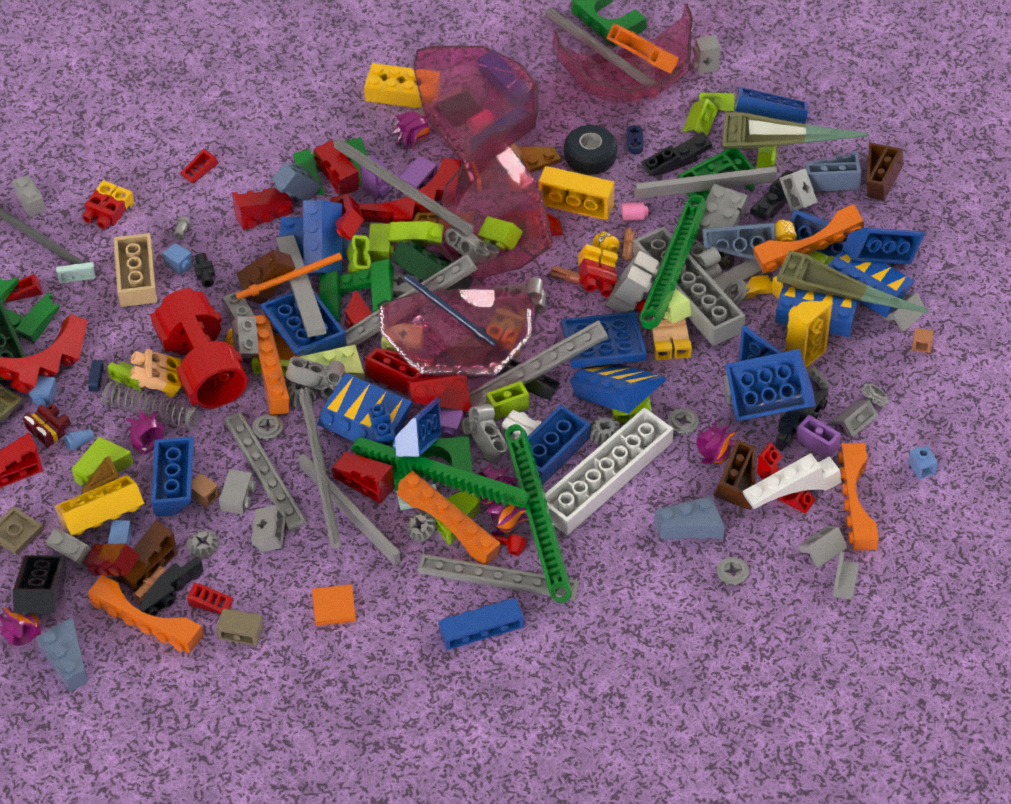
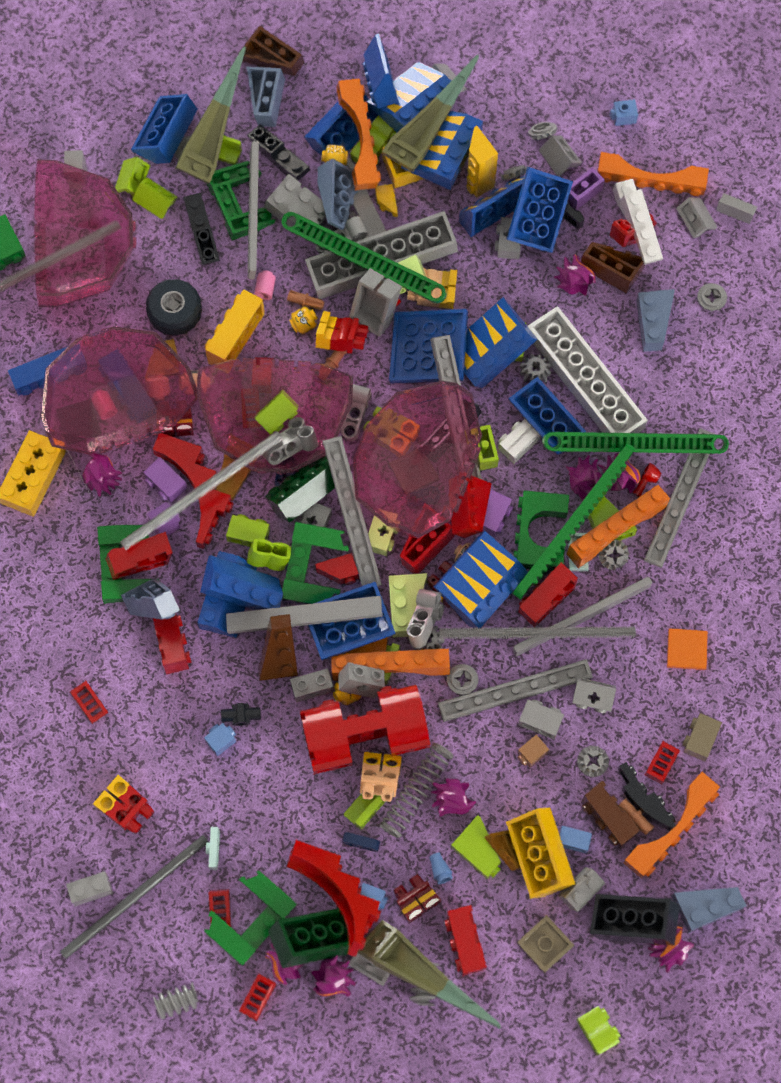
camera: 80 degrees left, 20 degrees up
(110, 559) = (616, 847): dark red brick -> none
(135, 270) = (229, 784): tan brick -> none
(172, 475) = (515, 775): blue slope -> none
(181, 228) = (173, 730): light grey pin -> none
(255, 289) = (301, 660): orange bar -> none
(351, 216) = (236, 554): red slope -> none
(381, 423) = (506, 563): blue slope -> none
(419, 232) = (259, 490): lime slope -> none
(419, 431) = (528, 529): blue slope -> none
(480, 332) = (406, 454): dark blue bar -> none
(481, 623) = (735, 520): blue brick -> none
(485, 432) = (520, 474): light grey piece -> none
(631, 140) = (164, 266): dark blue beam -> none
(645, 49) = (93, 208): orange arch -> none
(678, 416) = (532, 292): light grey gear -> none
(737, 286) = (395, 209): light grey gear -> none
(798, 190) = (284, 130): light grey brick -> none
(922, 340) = (485, 75): nougat plate -> none

